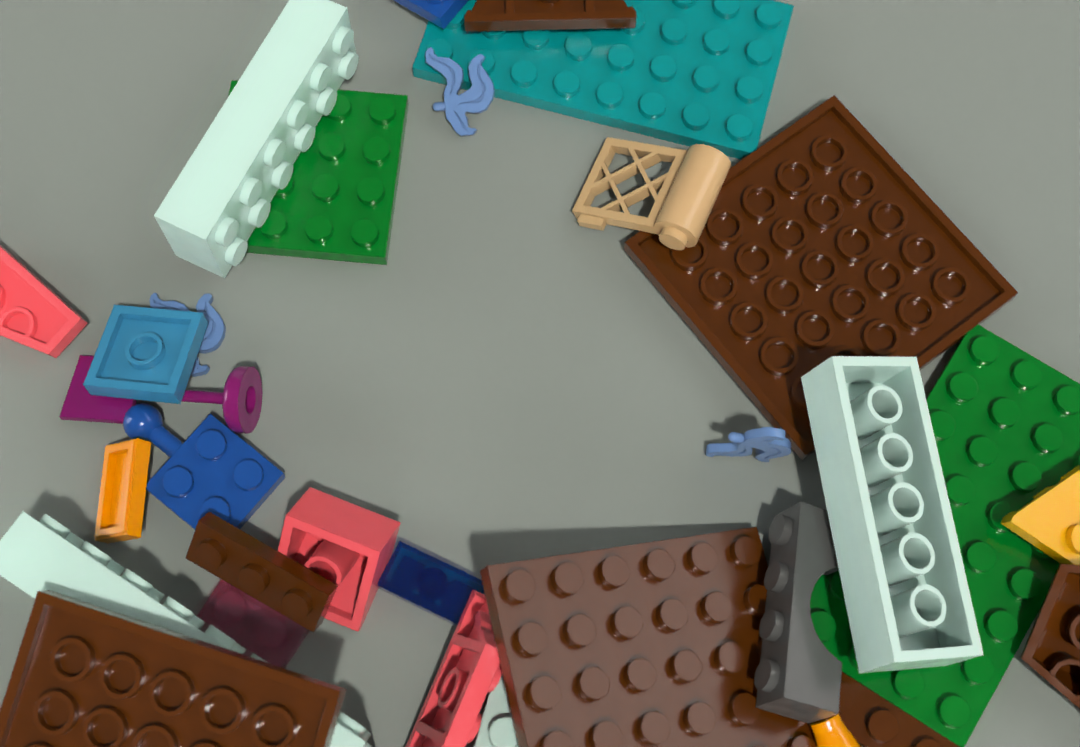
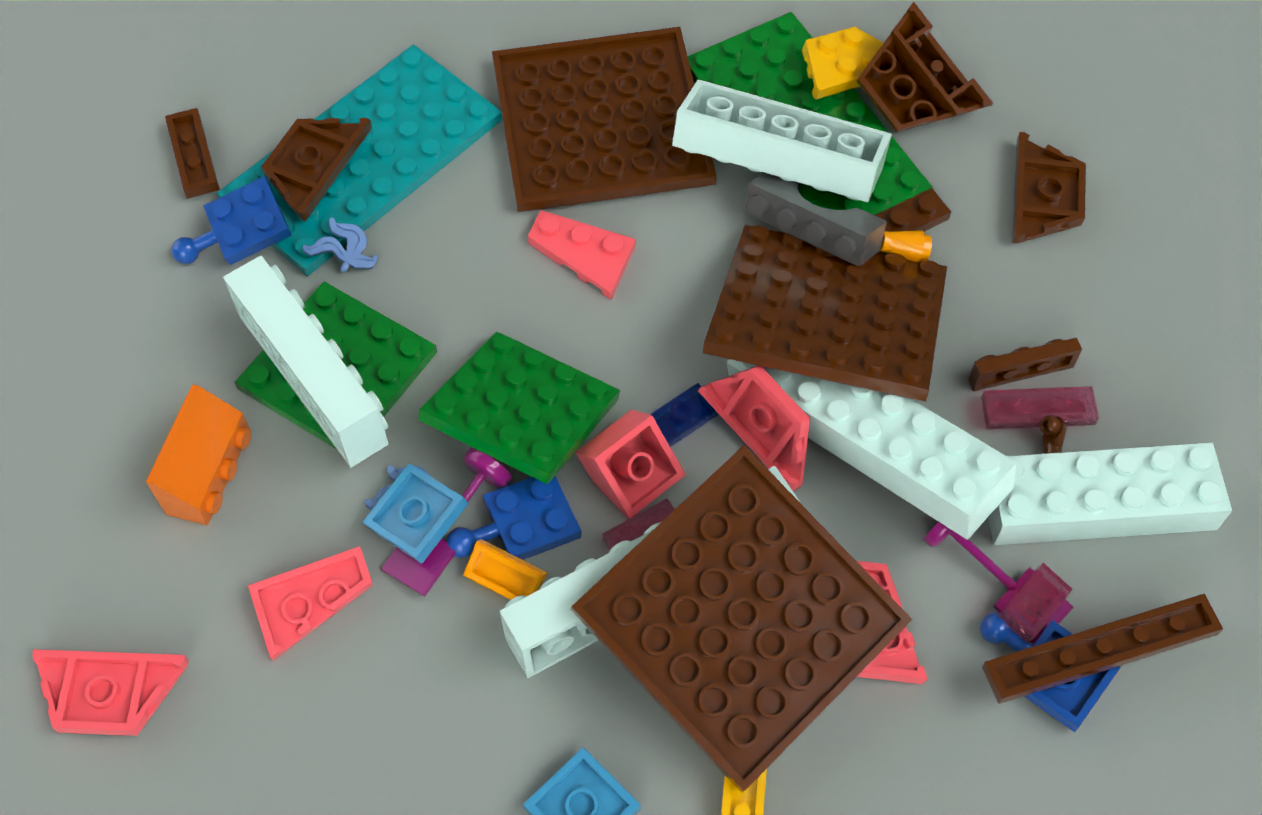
camera: 60 degrees left, 10 degrees down
(108, 96) = (199, 457): none -> orange slope
(261, 571) = (616, 505): reddish brown plate -> none
(336, 395) = (520, 406): none -> green plate
(612, 353) = (588, 250): none -> coral wing
(683, 196) = (511, 152): tan piece -> none
(768, 441) = (696, 197): medium blue piece -> none

